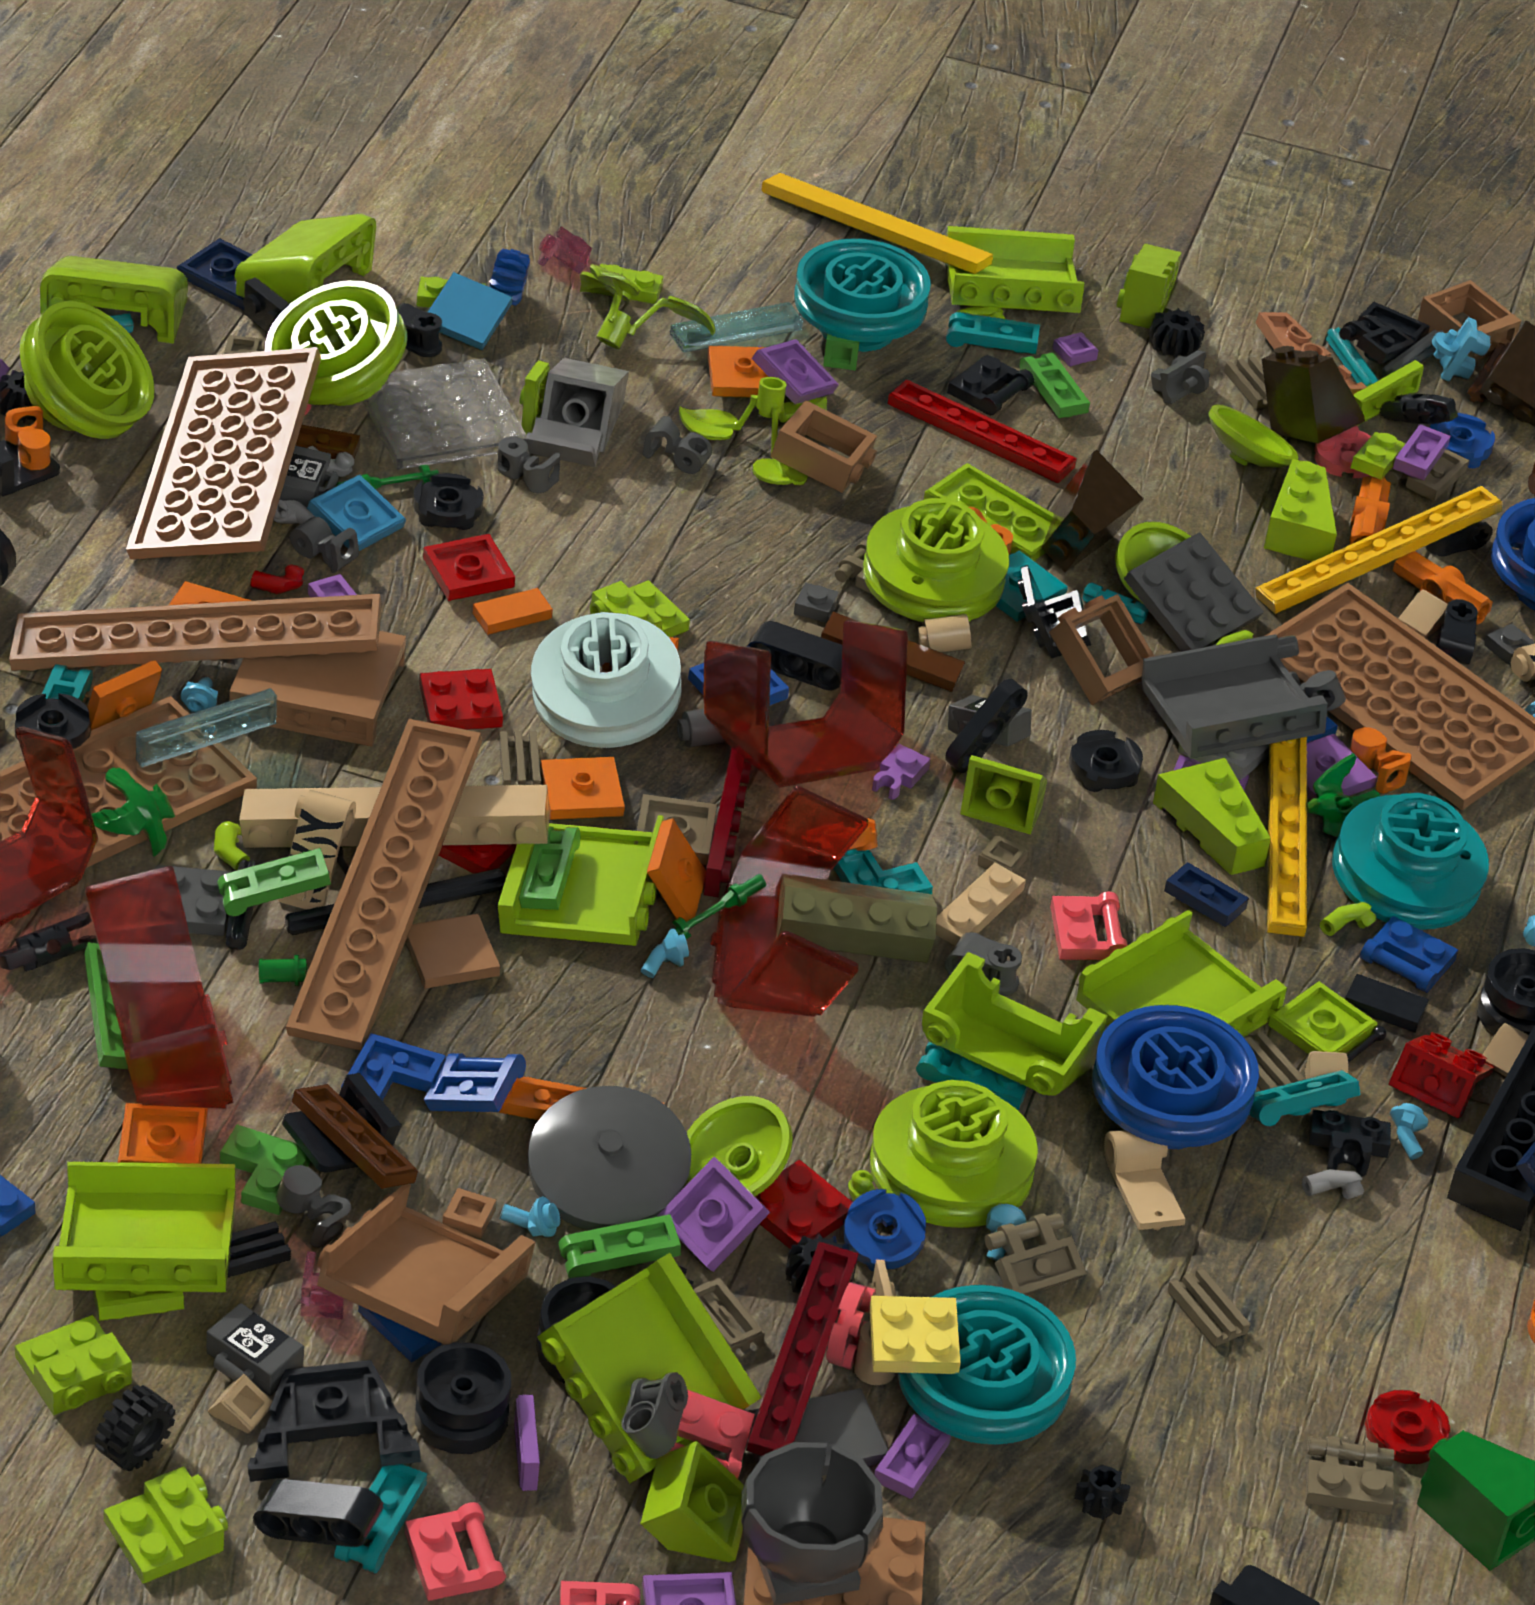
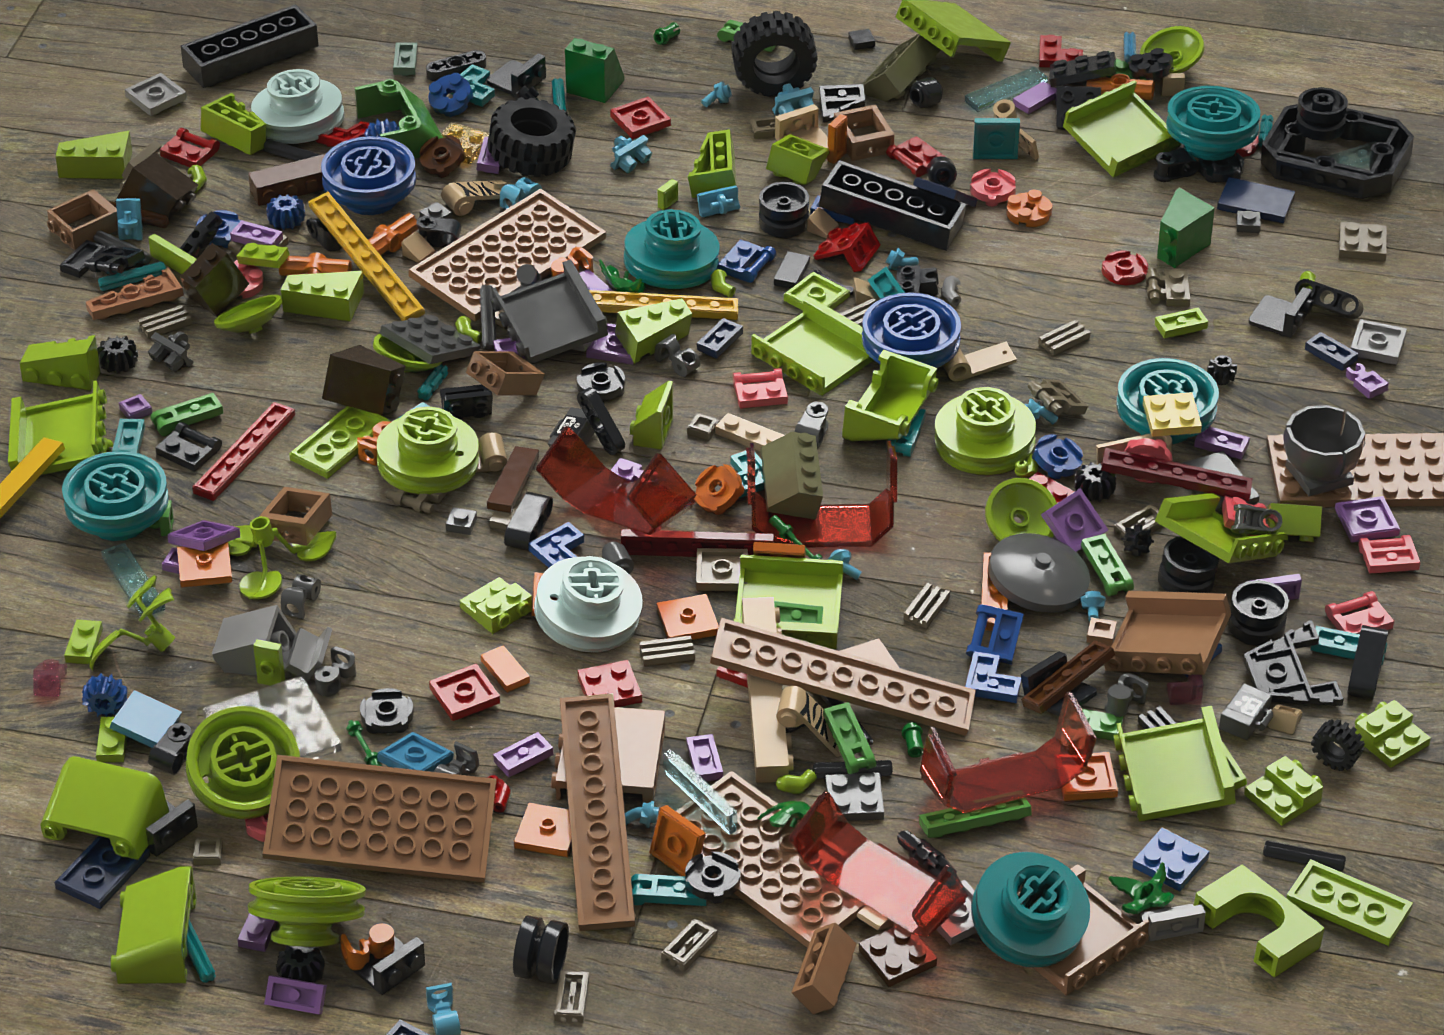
camera: 90 degrees left, 0 degrees up
(294, 763) = (704, 757): none -> plate
(573, 1030) = (931, 593): none -> dark tan tile
(1150, 847) = (682, 361): none -> dark grey leg
(1240, 1466) = (1181, 323): none -> lime plate
(1503, 487) = (285, 212): none -> blue gear

